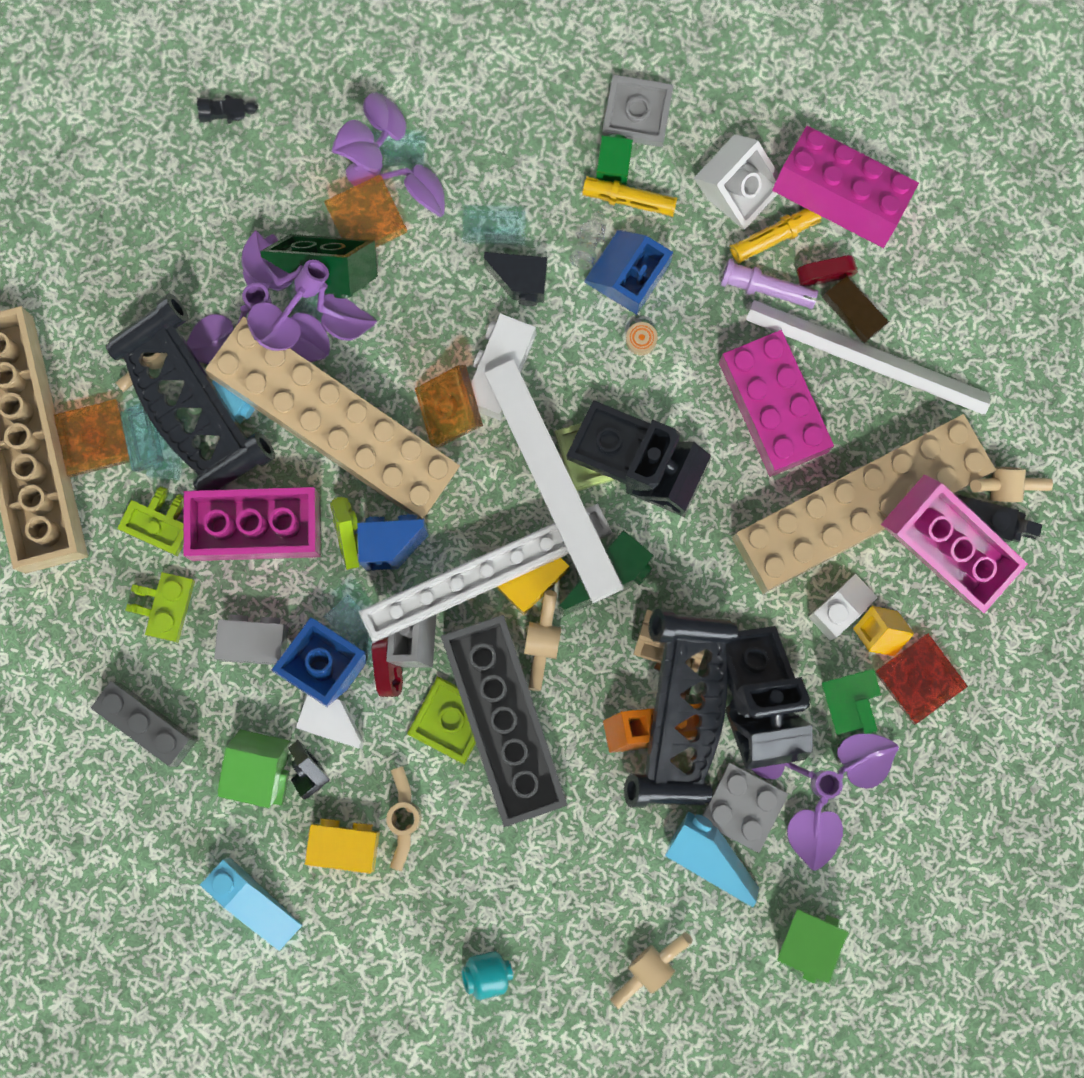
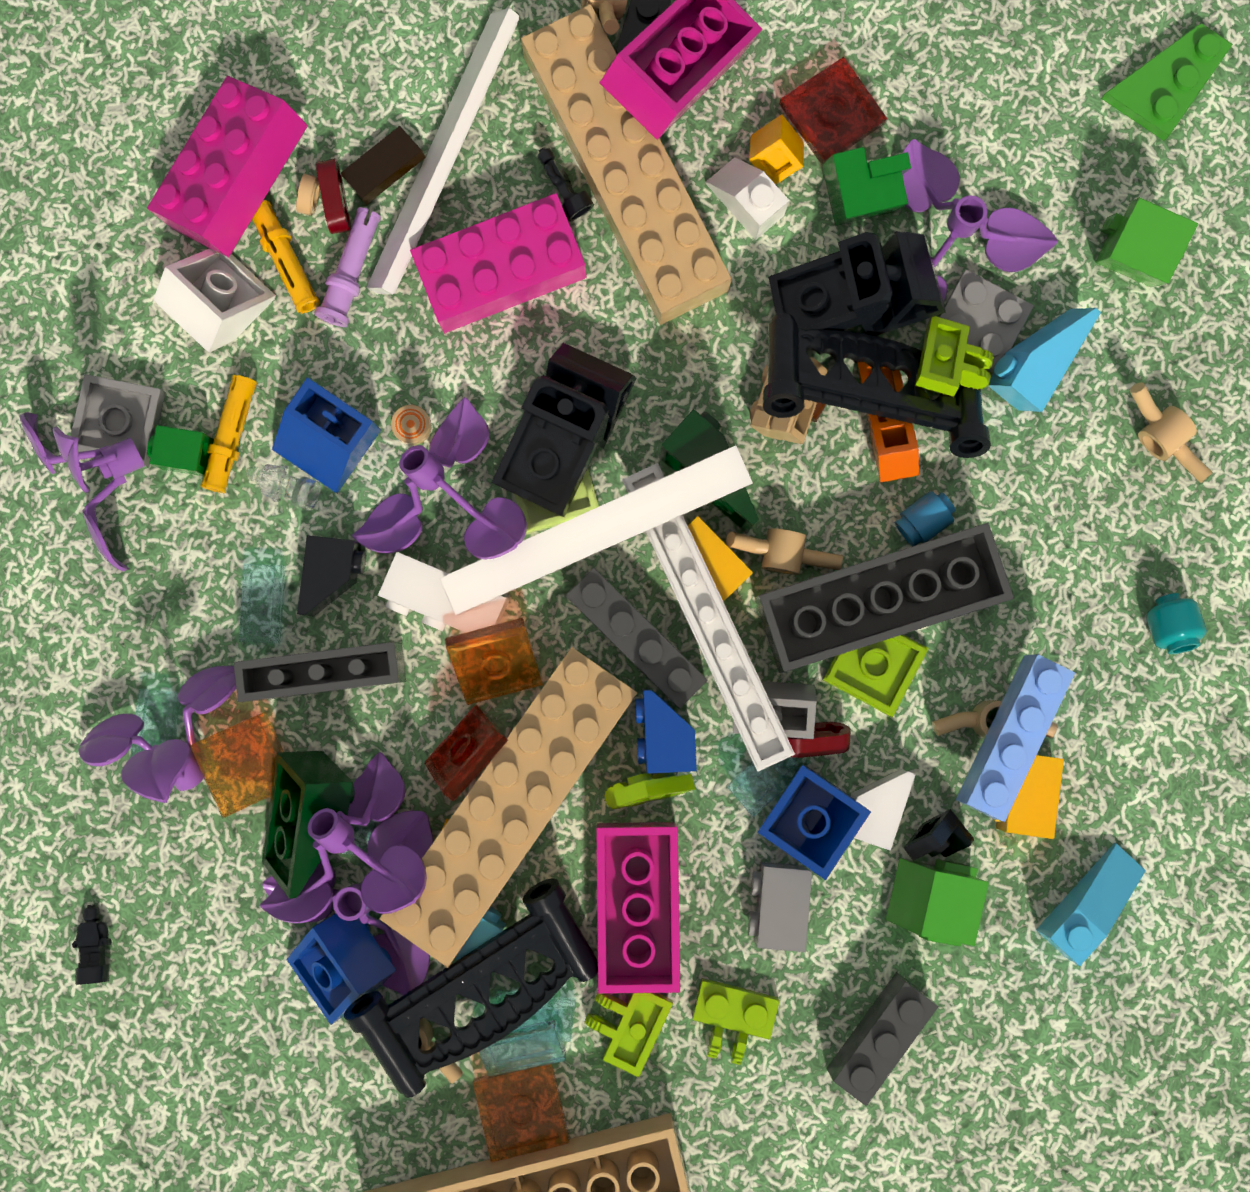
camera: 90 degrees left, 5 degrees up
(210, 294) = (340, 964): none -> blue slope
(375, 384) = (465, 752): none -> clear red plate
(387, 826) = (1015, 736): none -> light blue brick
(438, 272) = (319, 672): none -> dark grey brick
(469, 519) = (636, 638): none -> dark grey brick
(560, 327) = (395, 520): none -> medium lavender plant
(573, 759) = (925, 518): none -> dark azure brick
(603, 106) = (111, 460): none -> medium lavender plant
(708, 768) = (950, 361): none -> lime hinge
(826, 250) = (308, 195): none -> tan tile
(831, 463) = (575, 203): none -> black piece
(964, 976) = (1170, 82): none -> bright green wing

